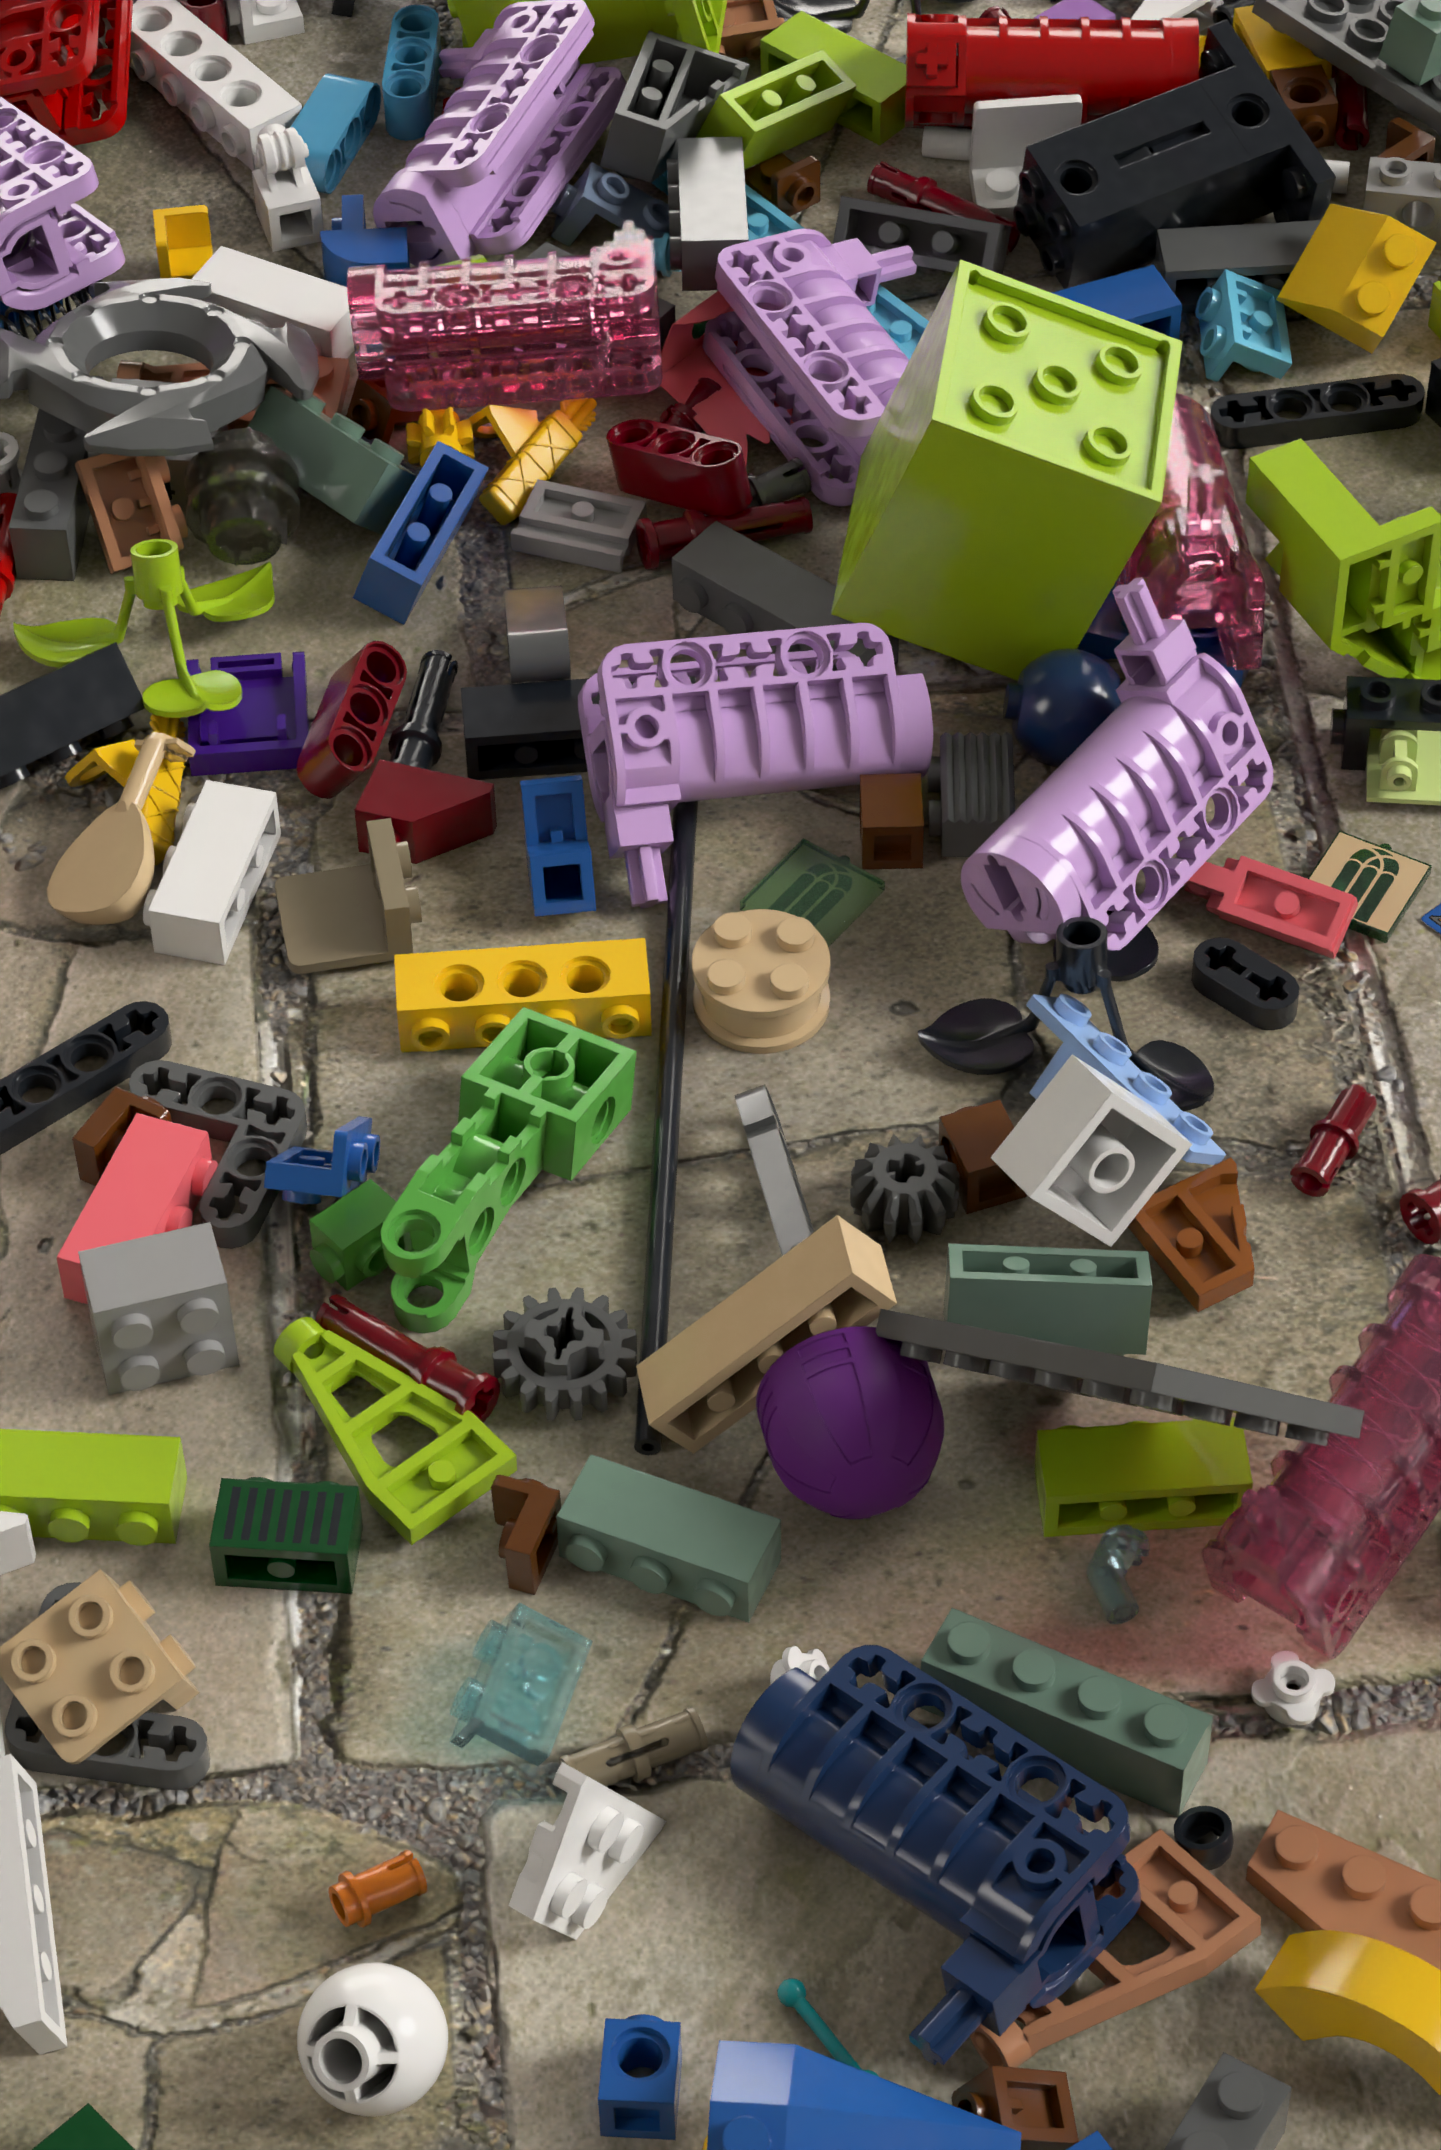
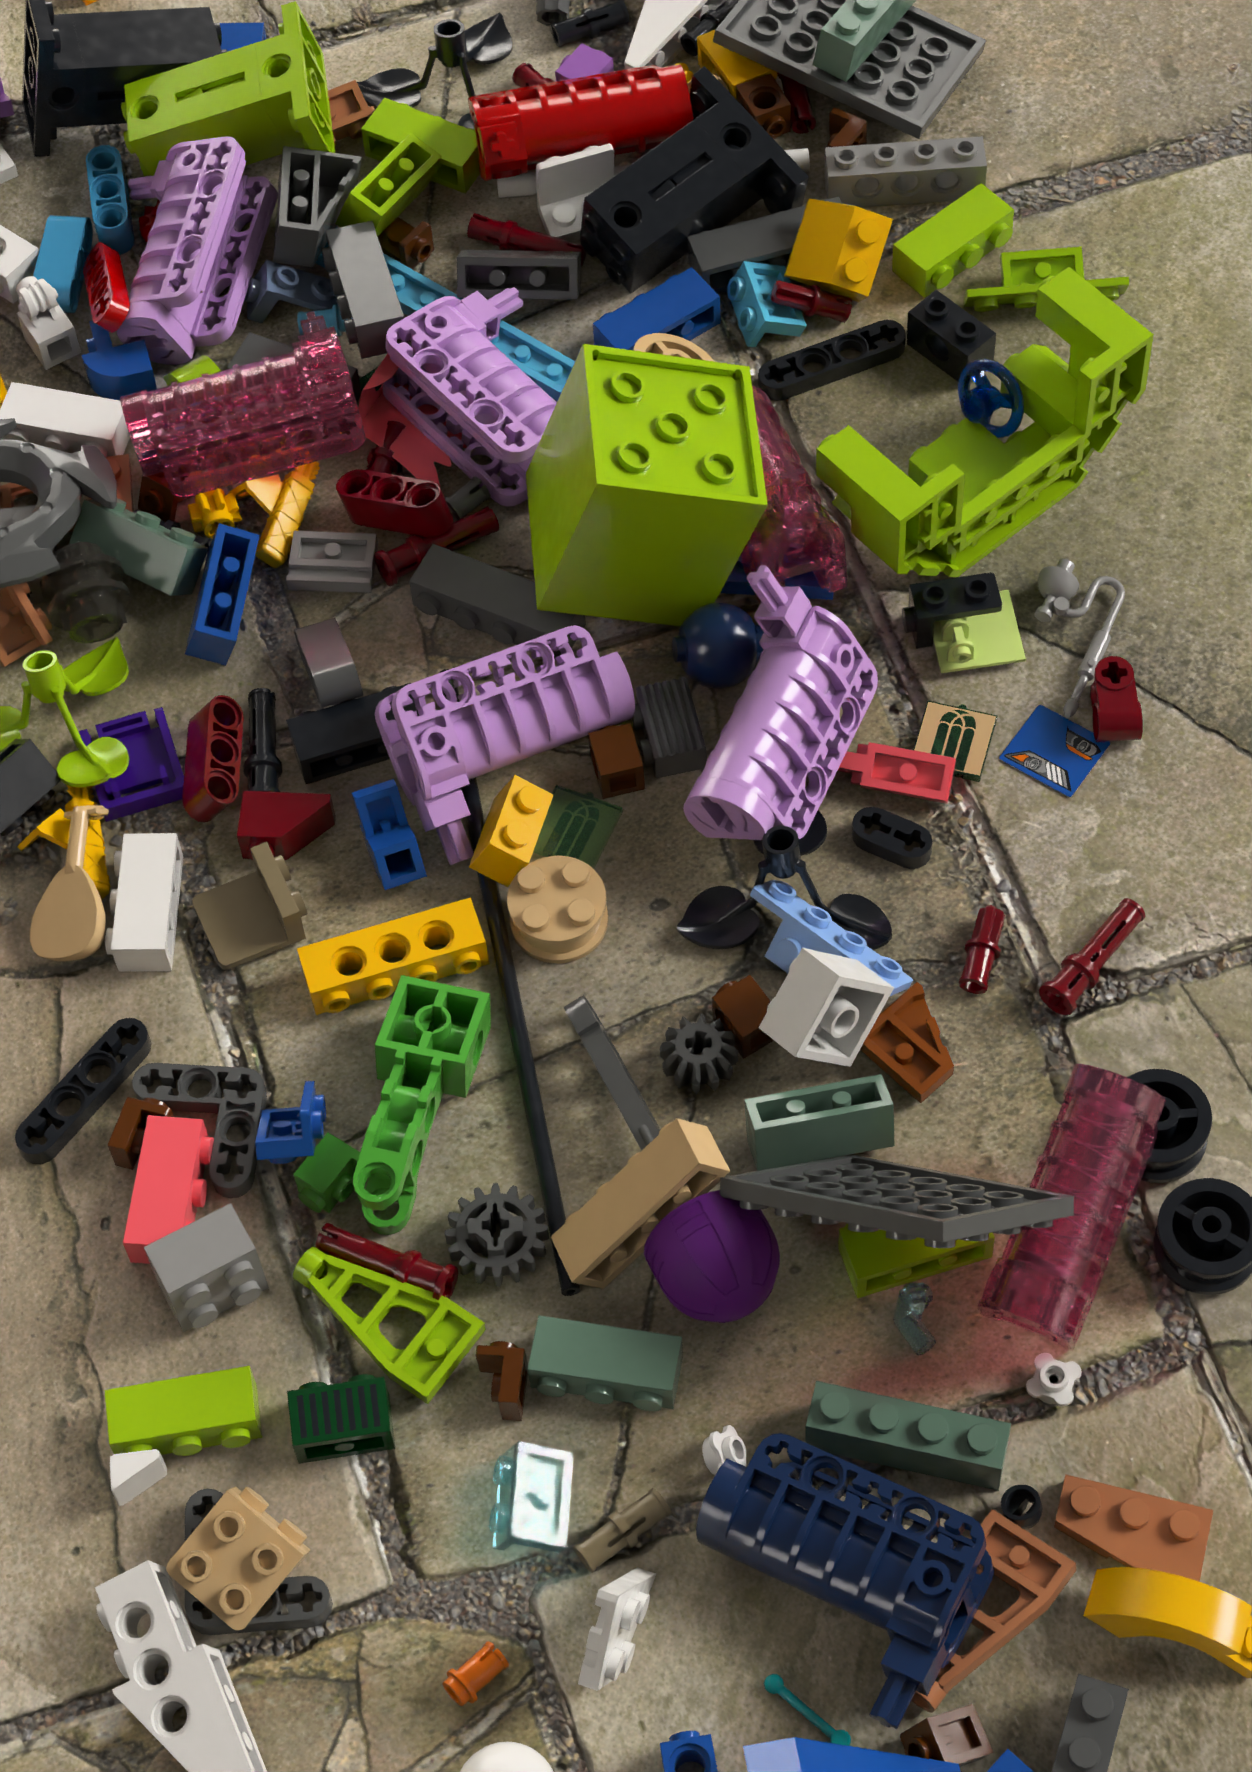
camera: 10 degrees left, 10 degrees up
(375, 160) = (106, 287): none -> red beam
(723, 870) = (511, 830): none -> yellow brick
(1307, 334) = (812, 300): none -> dark red axle

